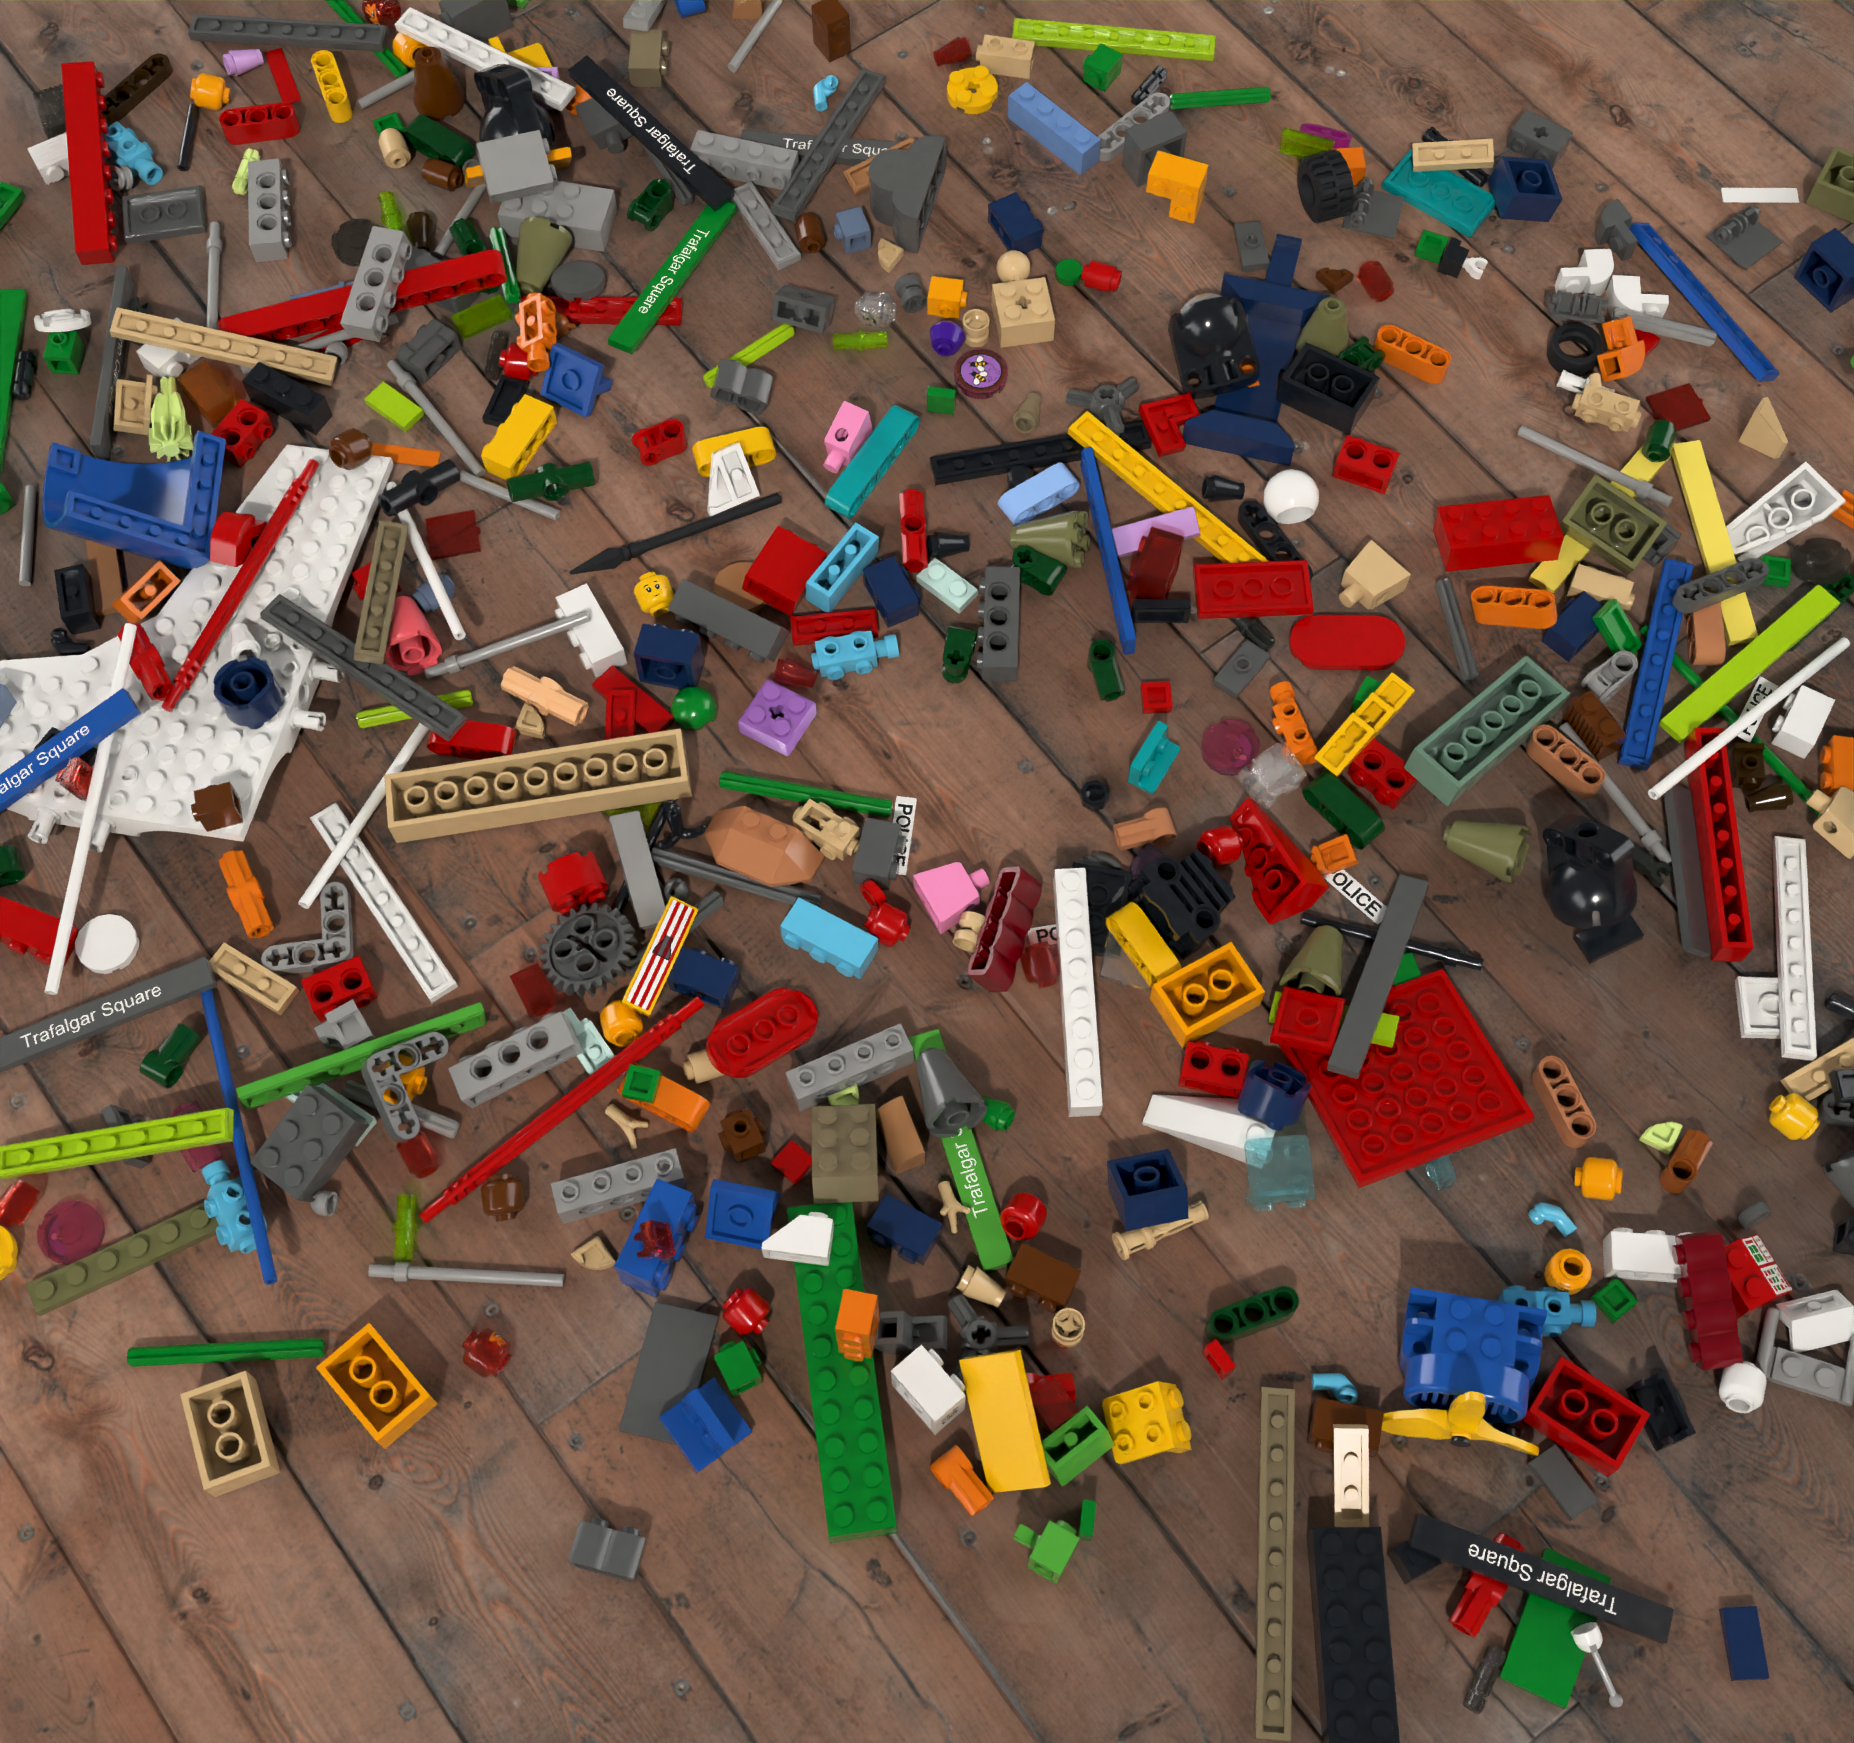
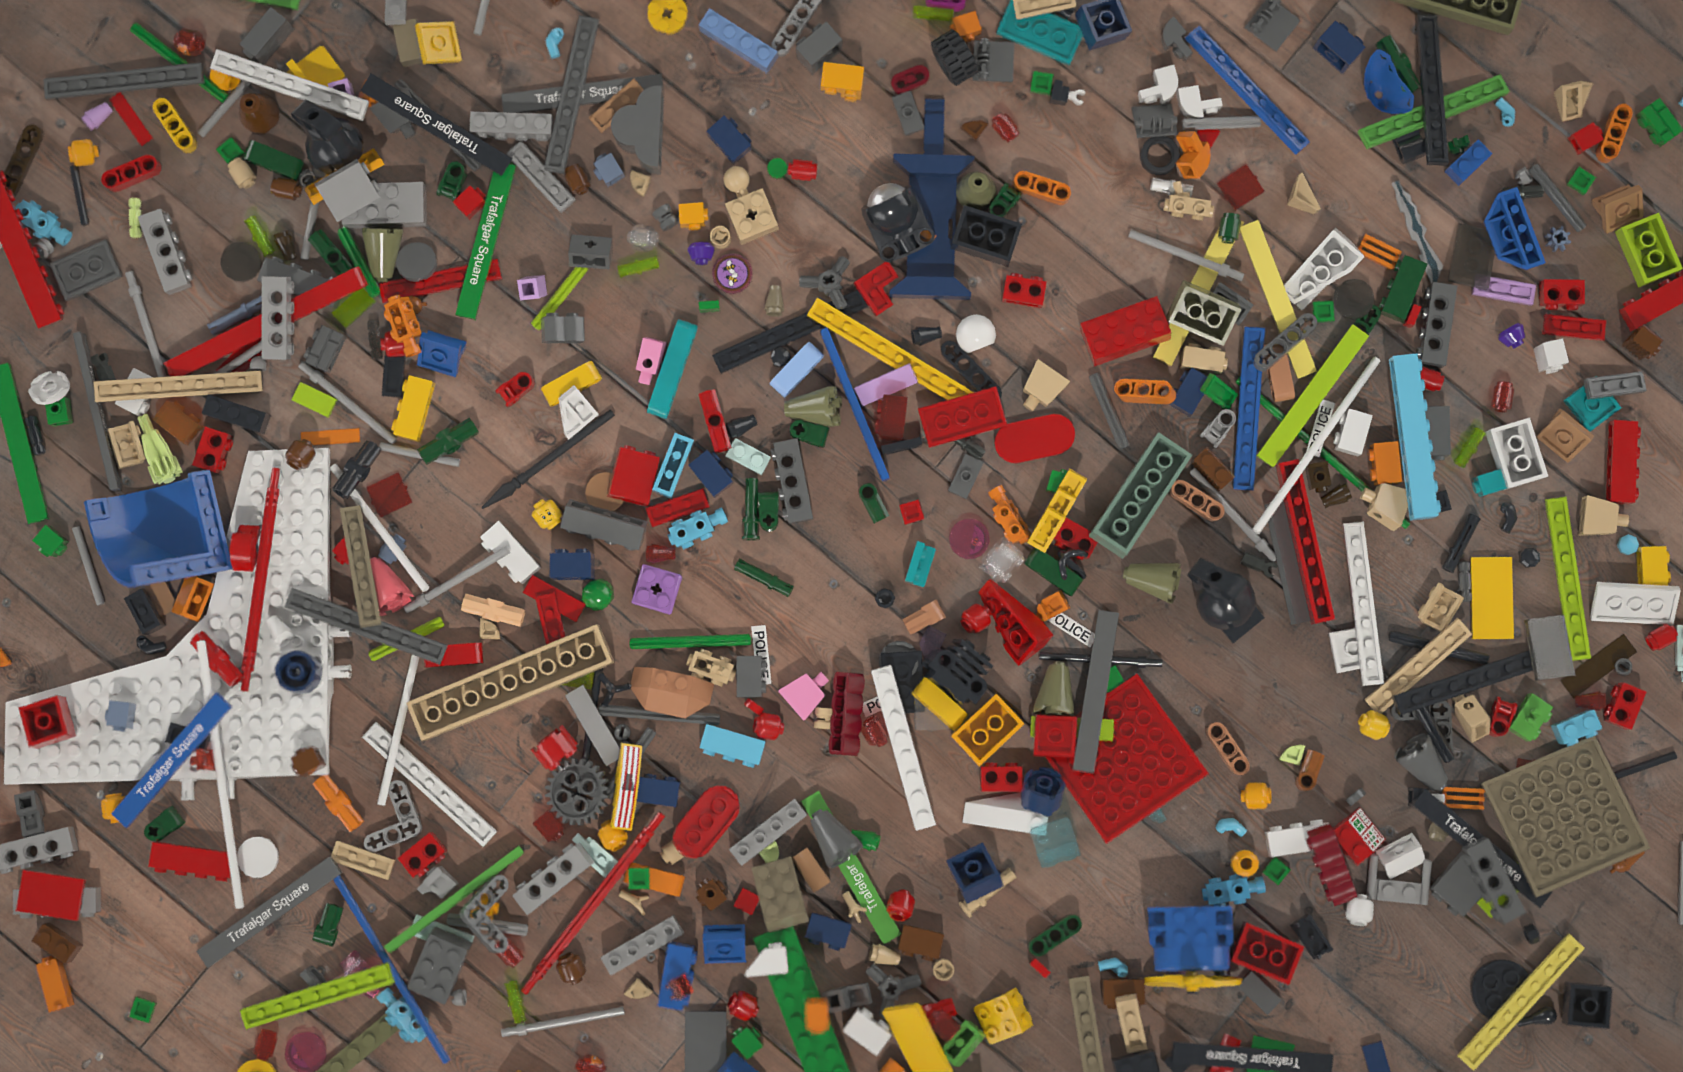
camera: 10 degrees left, 20 degrees up
(666, 230) = (470, 201): none -> red brick
(681, 61) = (438, 42): none -> yellow plate
(716, 331) = (532, 287): none -> lavender brick
(931, 657) = (751, 515): none -> dark green pin
(940, 741) = (763, 577): none -> dark green pin
(1262, 208) = (909, 78): none -> dark red plate
(1364, 790) = (1065, 558): none -> black piece

